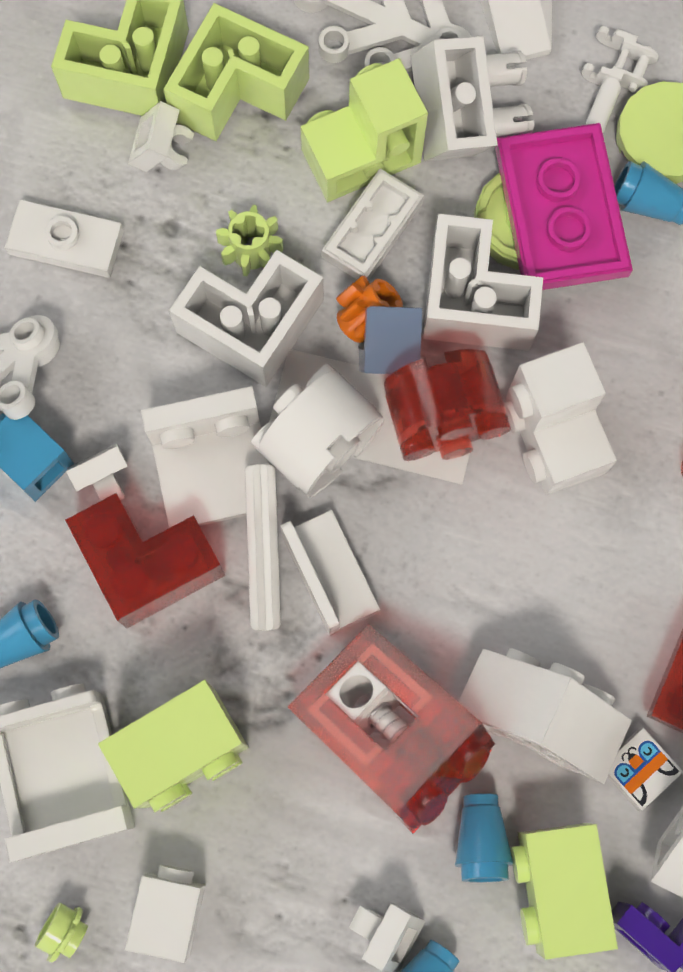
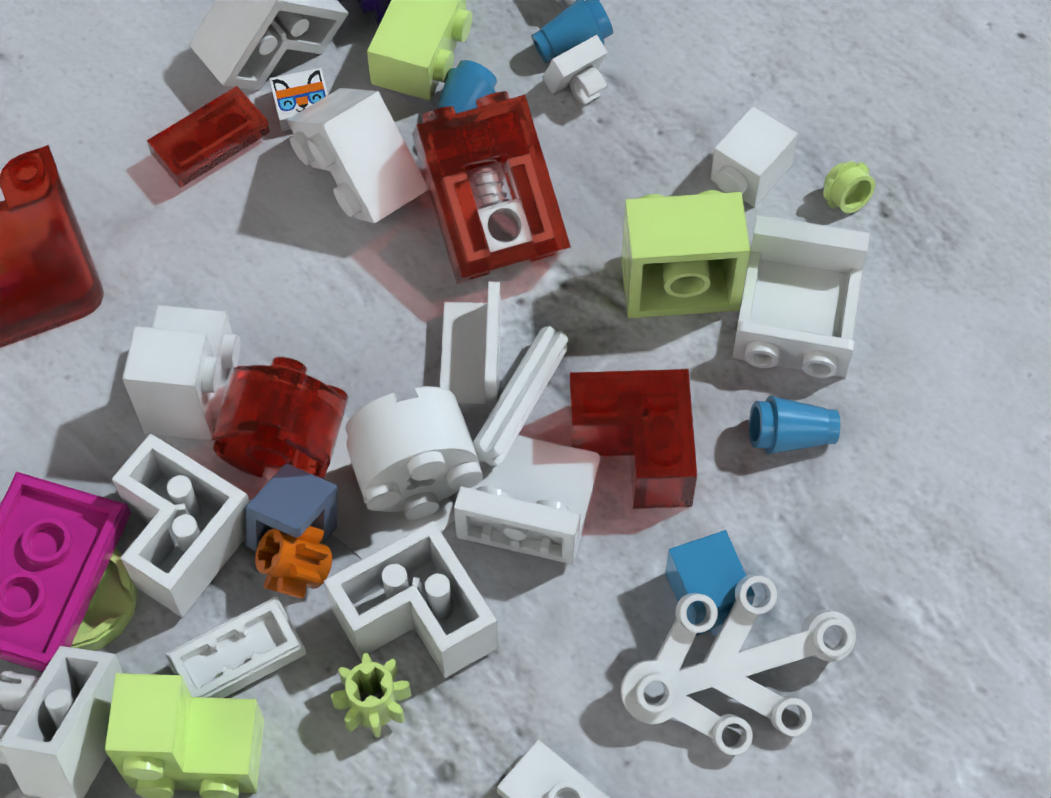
camera: 150 degrees left, 15 degrees down
(99, 471) = (642, 533): white tile -> none

